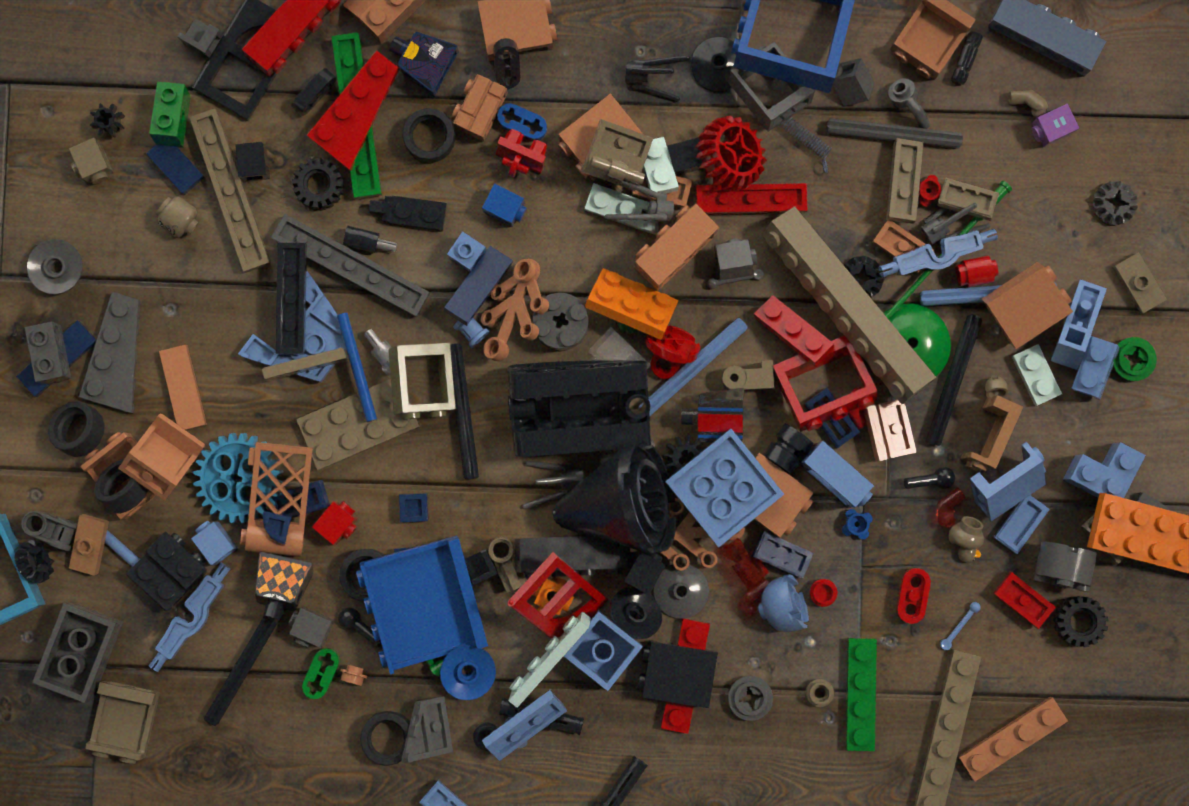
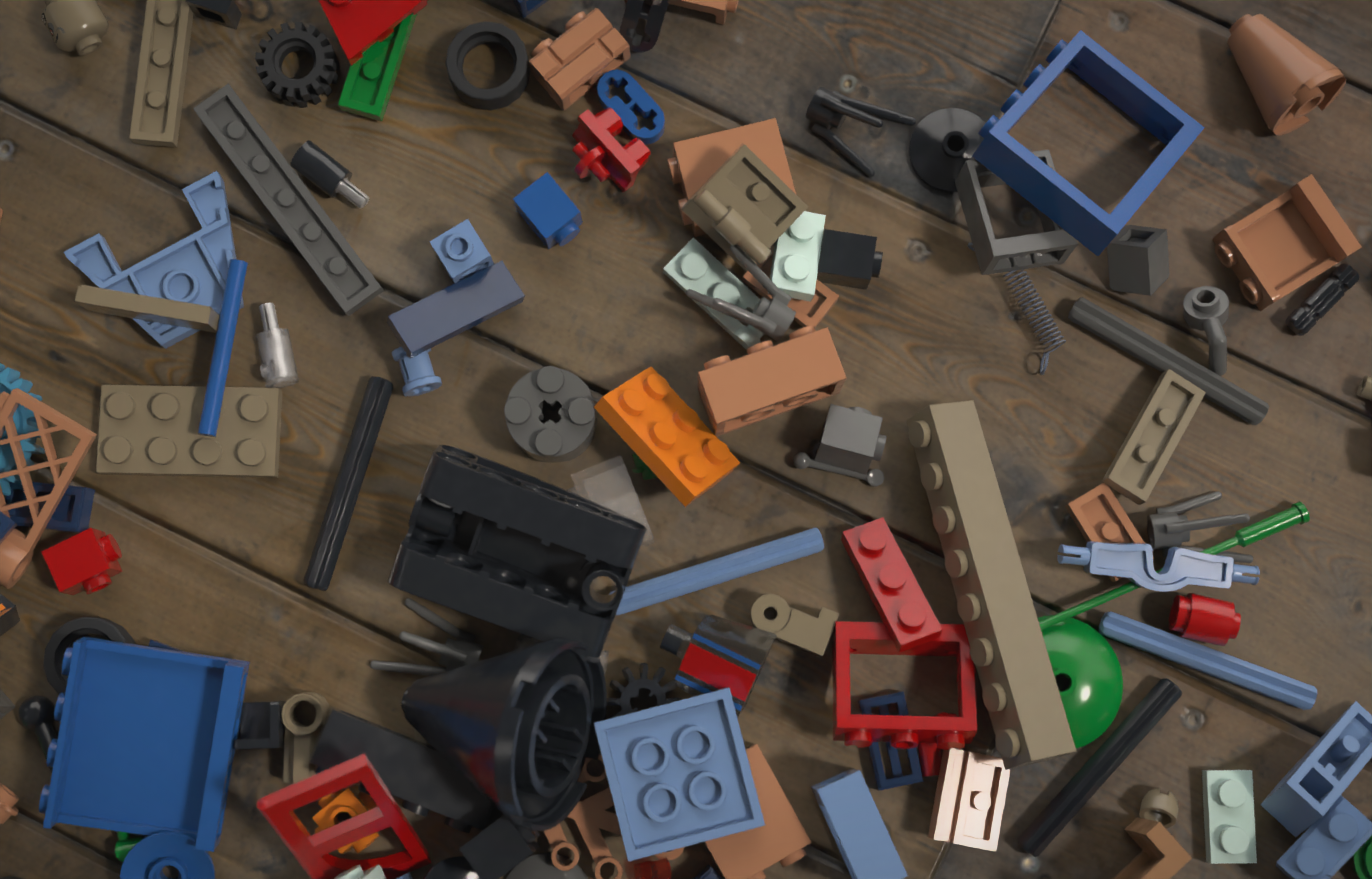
camera: 20 degrees right, 5 degrees down
(291, 298) = (175, 206): black plate -> none
(399, 381) = (322, 364): window -> none
(411, 212) = (411, 163): black hinge -> none
(413, 507) = (208, 592): dark blue plate -> none
(524, 279) = (526, 328): nougat plant -> none
(676, 347) = (702, 527): red tile -> none
(725, 157) = (900, 282): red gear -> none
(753, 199) = (915, 361): red plate -> none
(788, 448) = (803, 758): black wheel -> none
(871, 269) = (1048, 542): black gear -> none
(932, 183) = (1193, 476): red plate -> none
(959, 195) = (1226, 493): dark tan plate -> none
(1028, 304) = (1263, 703): nougat brick -> none

